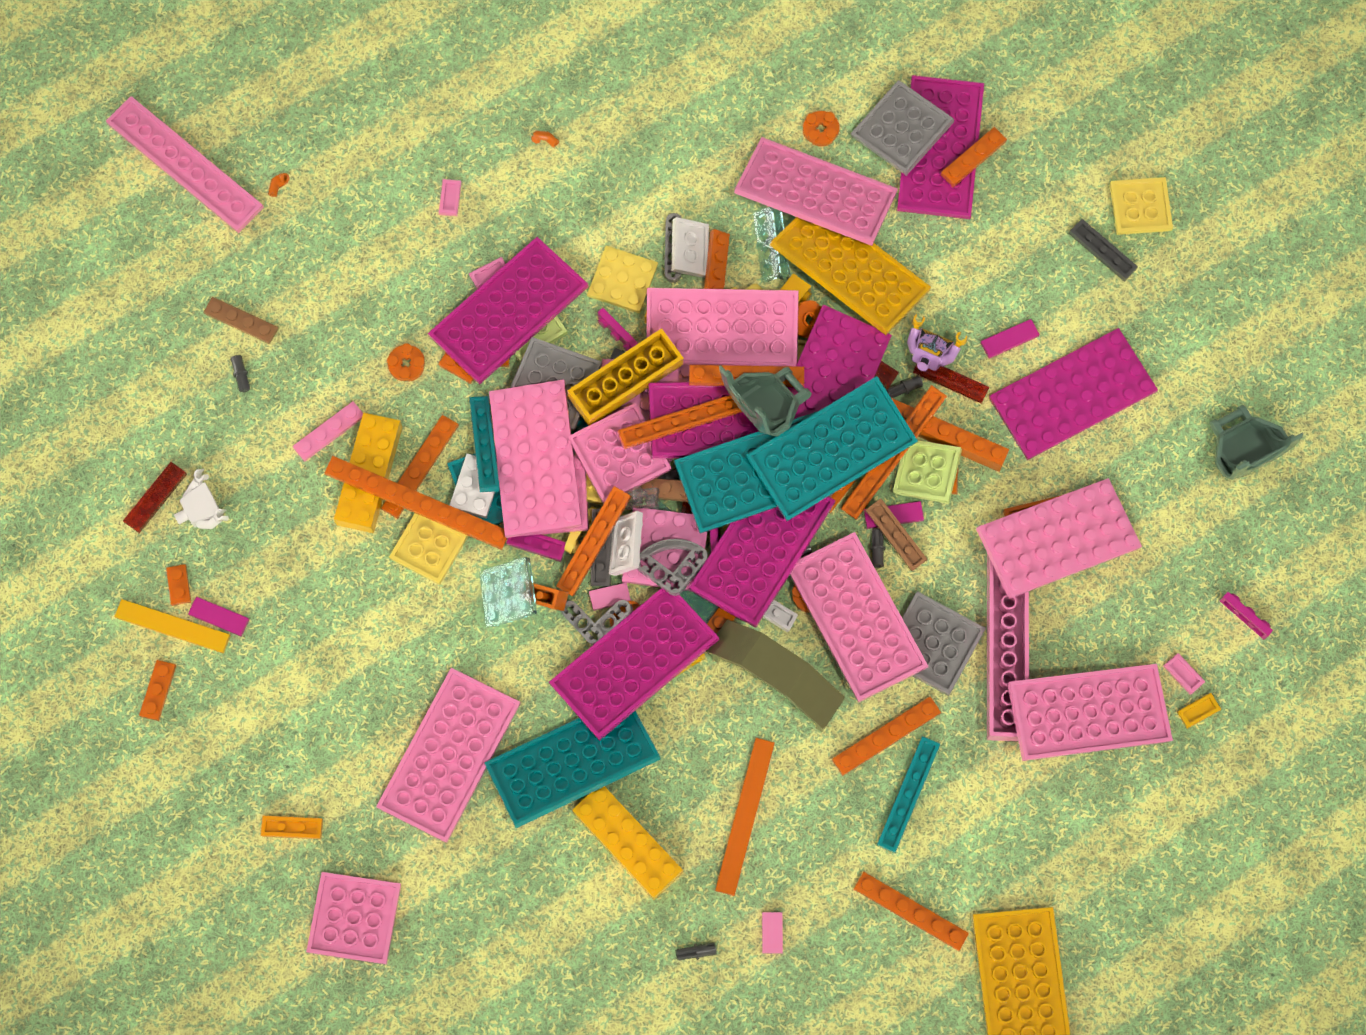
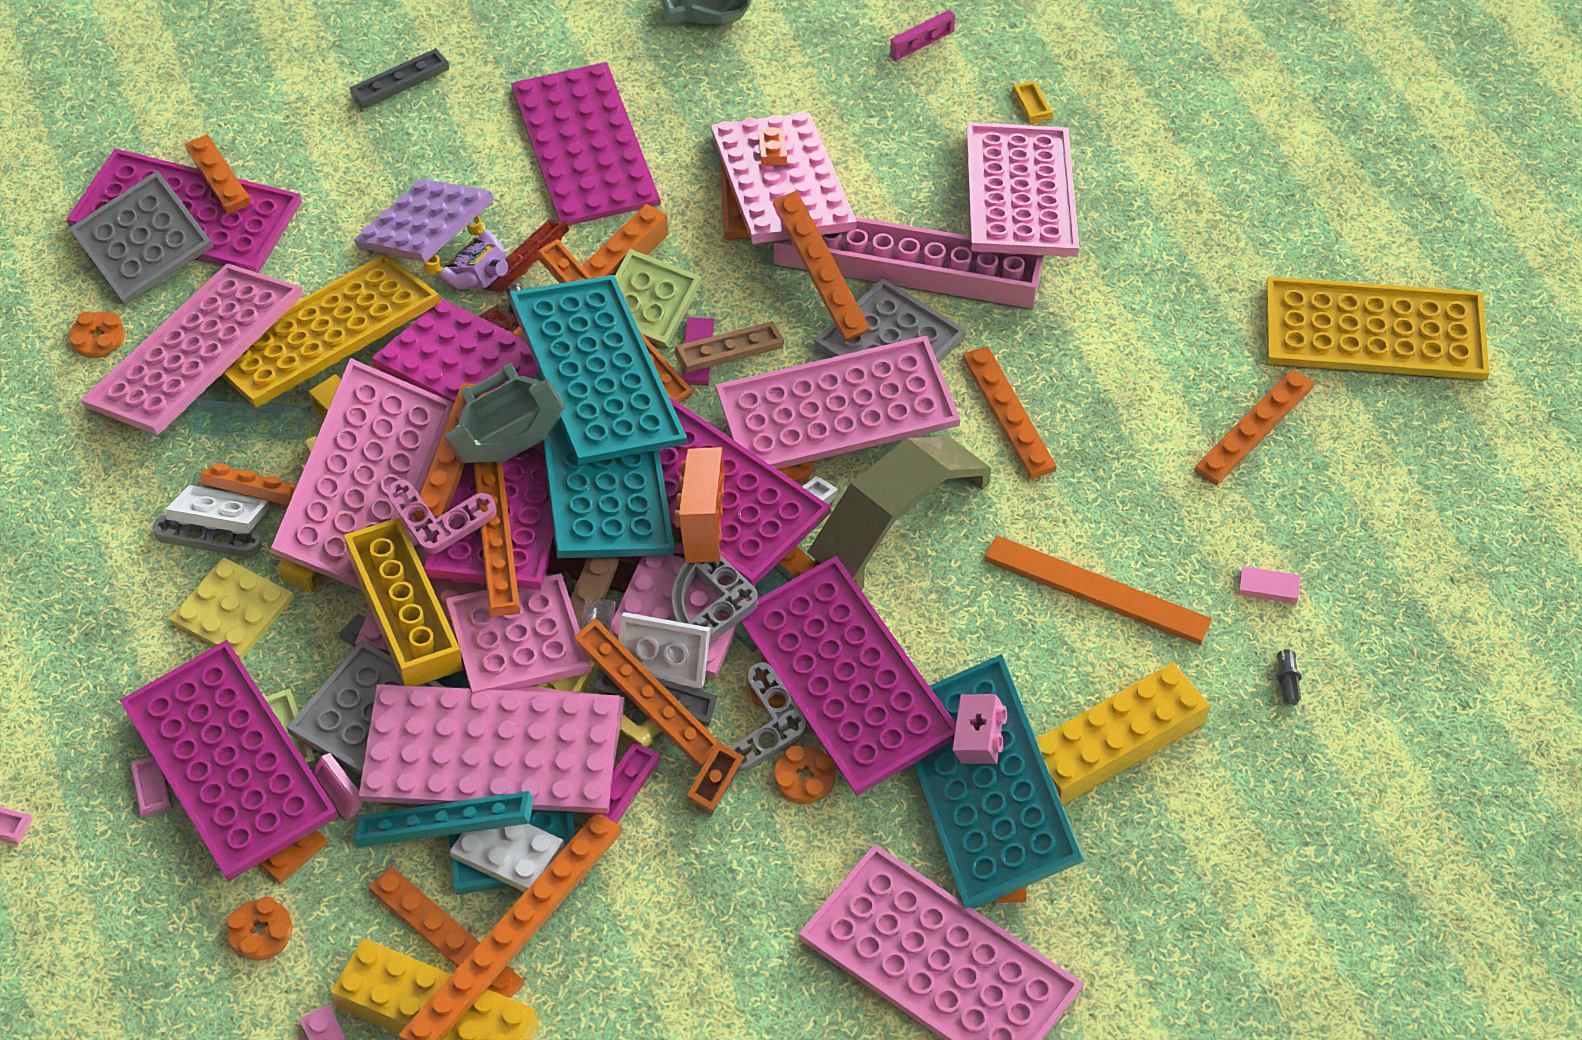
camera: 80 degrees left, 20 degrees down
(428, 548) = (588, 941): light yellow plate -> none
(503, 376) = (337, 786): none -> bright pink tile
(508, 592) = (696, 828): clear light blue plate -> none
(559, 642) = (800, 759): none -> orange plate
(598, 749) = (979, 729): none -> bright pink brick
(608, 596) = (731, 703): bright pink tile -> none
(616, 329) = (317, 621): dark pink plate -> none
(678, 383) = (440, 526): none -> bright pink beam
(736, 541) = (701, 504): none -> orange wedge
(877, 548) = (731, 373): dark grey axle -> none
(908, 794) = (1096, 399): teal plate -> none
(961, 304) = (423, 219): none -> lavender plate
(967, 579) = (820, 266): none -> orange plate
(1010, 338) = (485, 177): dark pink tile -> none
(1082, 525) = (772, 146): none -> plate
(1141, 206) = (354, 33): light yellow plate -> none
(1184, 673) = (982, 106): bright pink tile -> none

